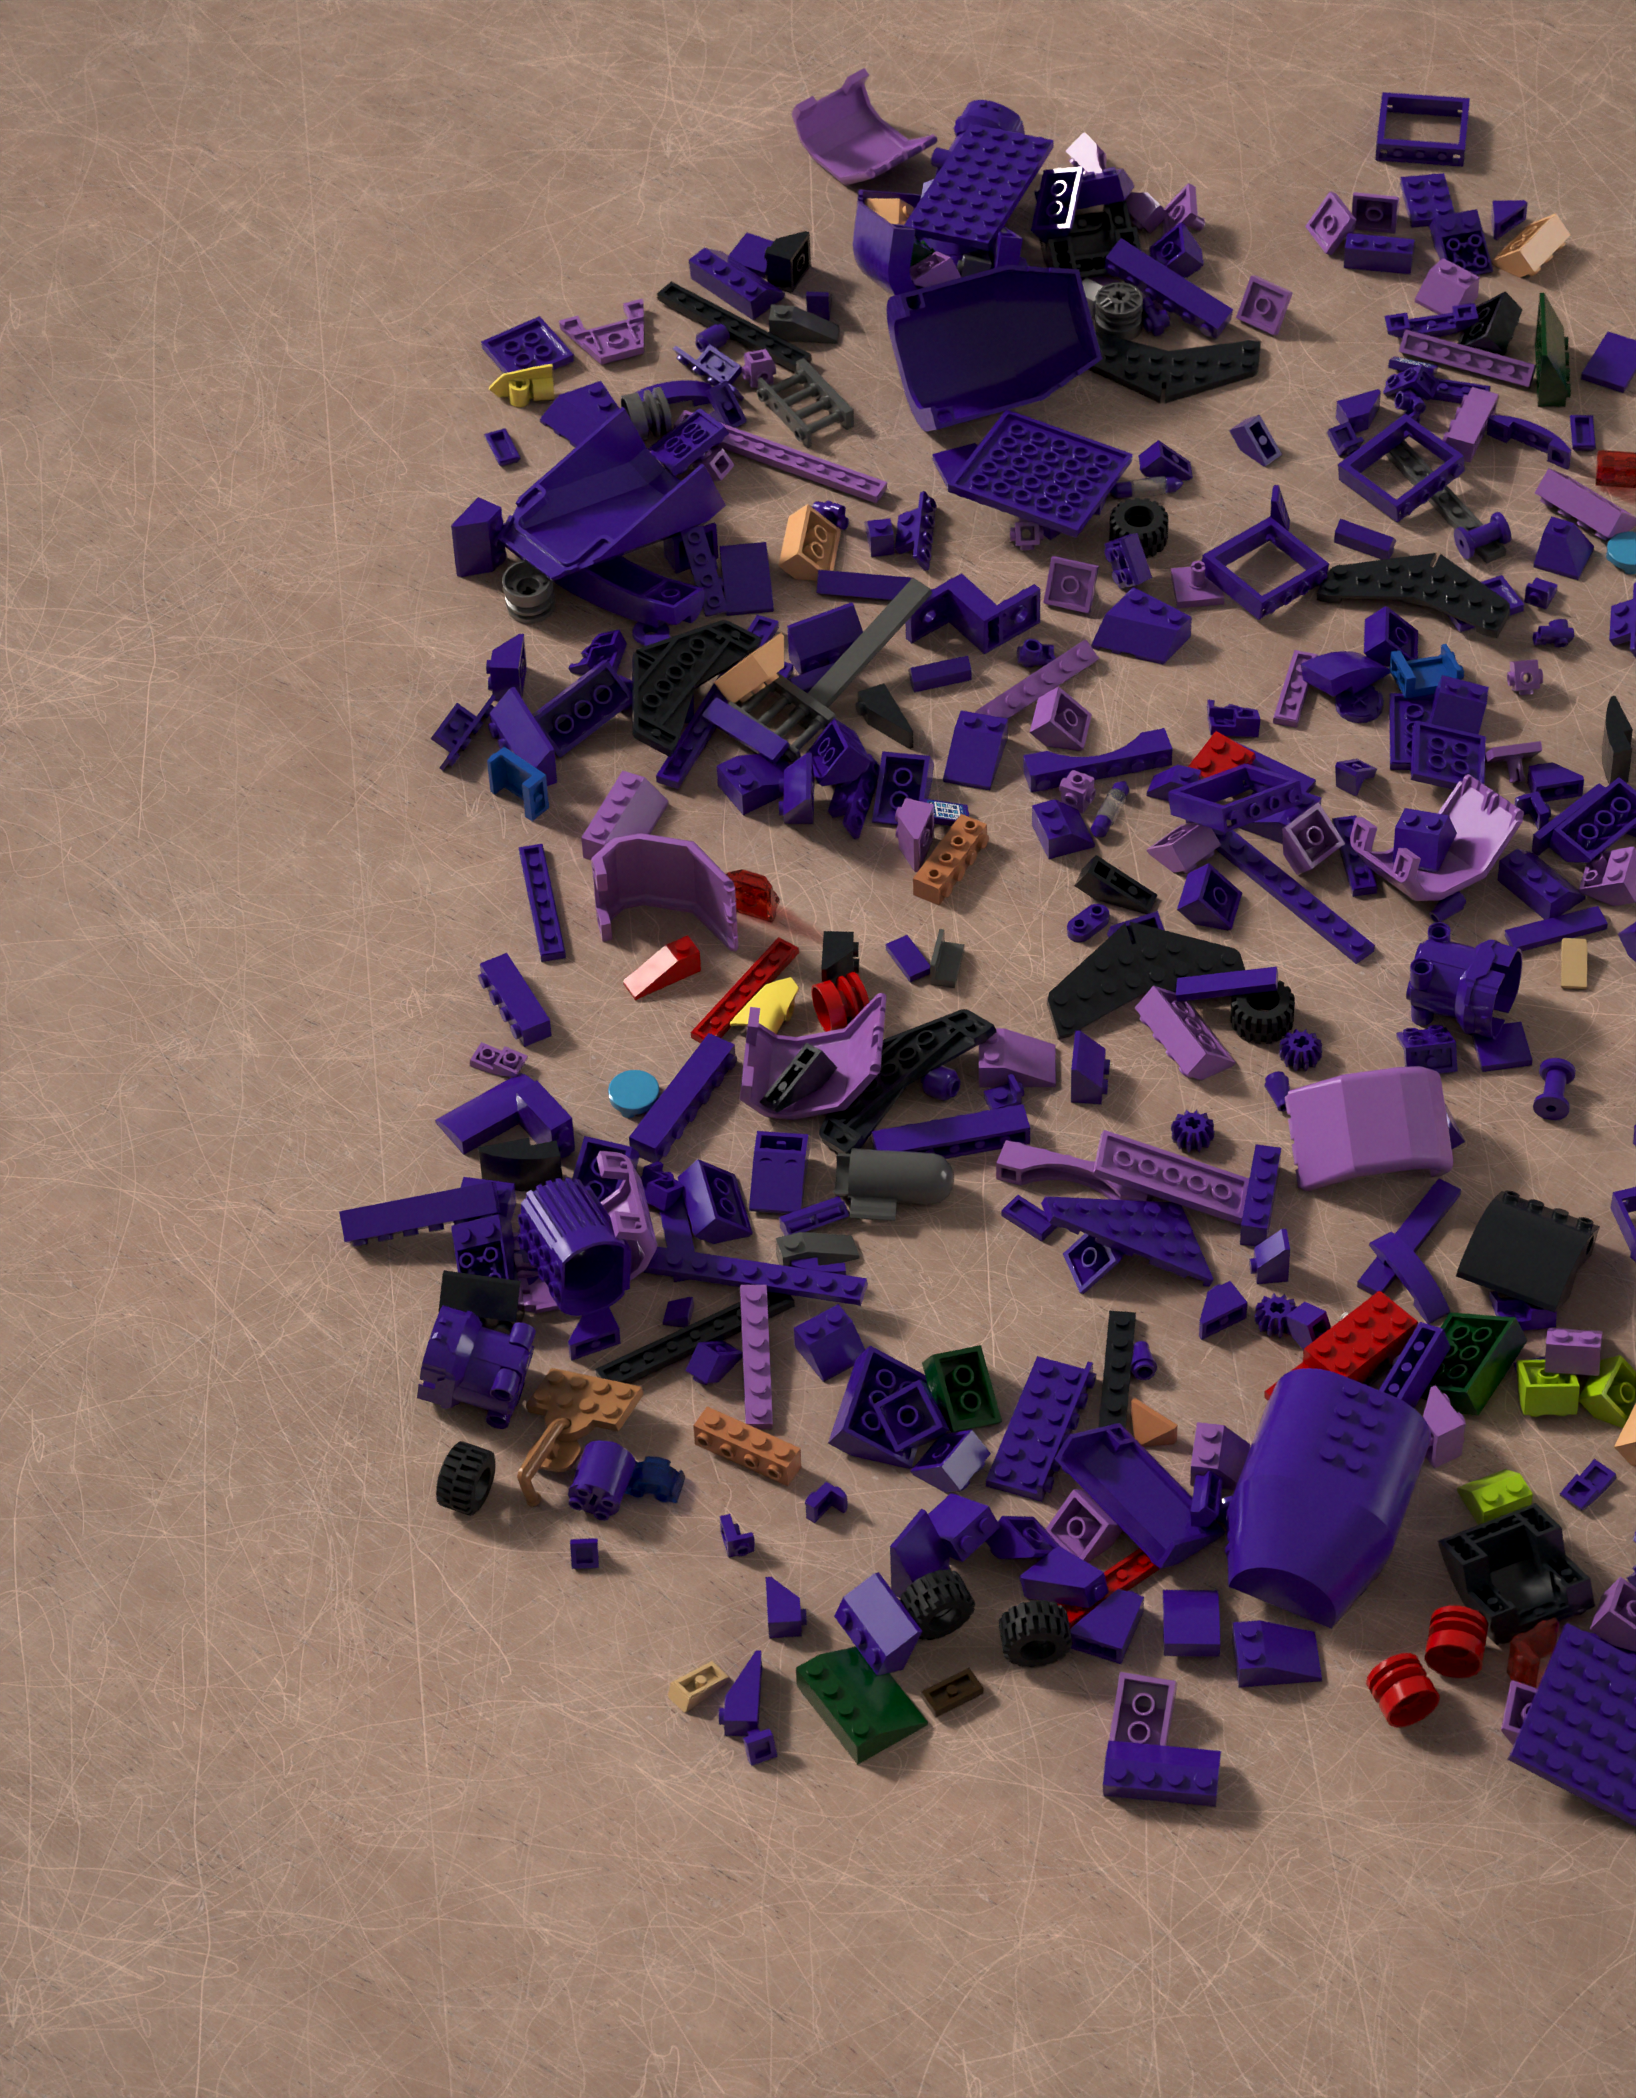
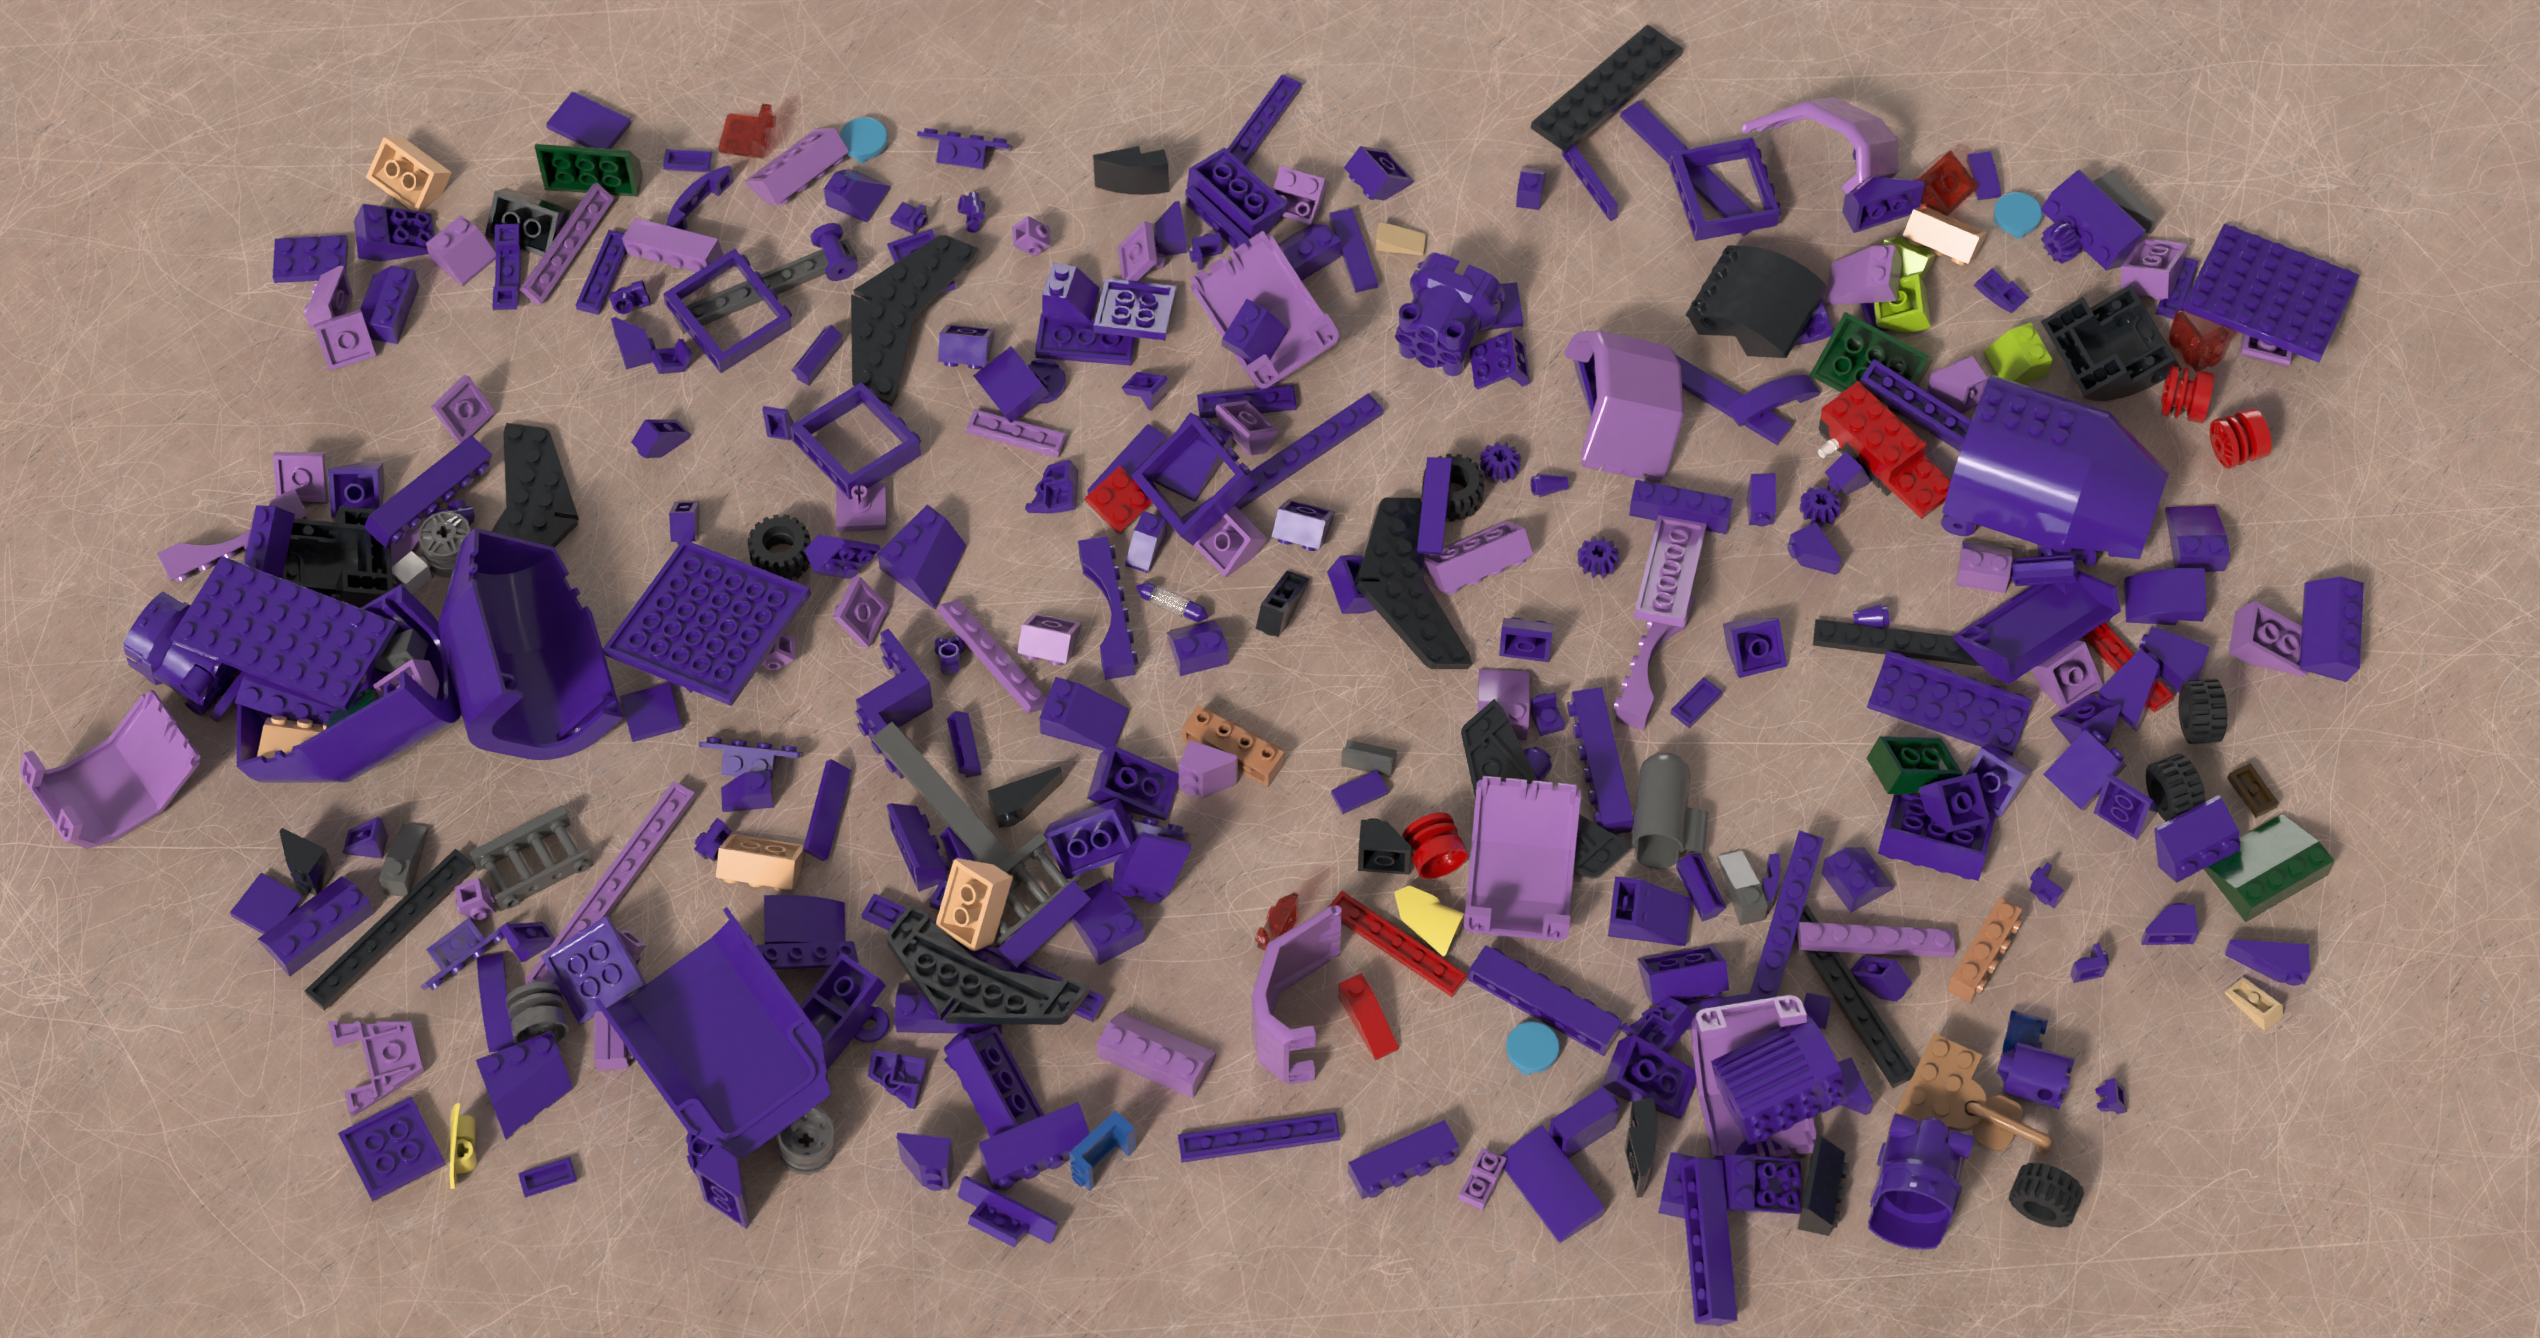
camera: 90 degrees left, 10 degrees up
(715, 335) = (408, 950): dark purple brick -> none
(759, 1746) = (2323, 949): dark purple tile -> none
(802, 1077) = (1540, 885): black slope -> none
(947, 812) = (1169, 746): tile -> none
(1056, 202) = (303, 563): dark purple slope -> none
(1077, 790) = (1150, 626): medium lavender brick -> none
(1092, 921) = (1318, 631): dark purple plate -> none
(1138, 1227) = (1735, 603): dark purple wing -> none
(1146, 487) = (711, 530): piece -> none
(1151, 1427) = (1949, 617): nougat slope -> none
(1403, 364) = (570, 291): dark purple tile -> none
(1417, 377) = (599, 294): dark purple bracket -> none
(1422, 151) = (200, 287): dark purple window -> none
(1422, 675) = (1015, 316): blue panel -> none
(1507, 215) = (357, 191): dark purple slope -> none
(1556, 1074) = (1558, 266): dark purple piece -> none

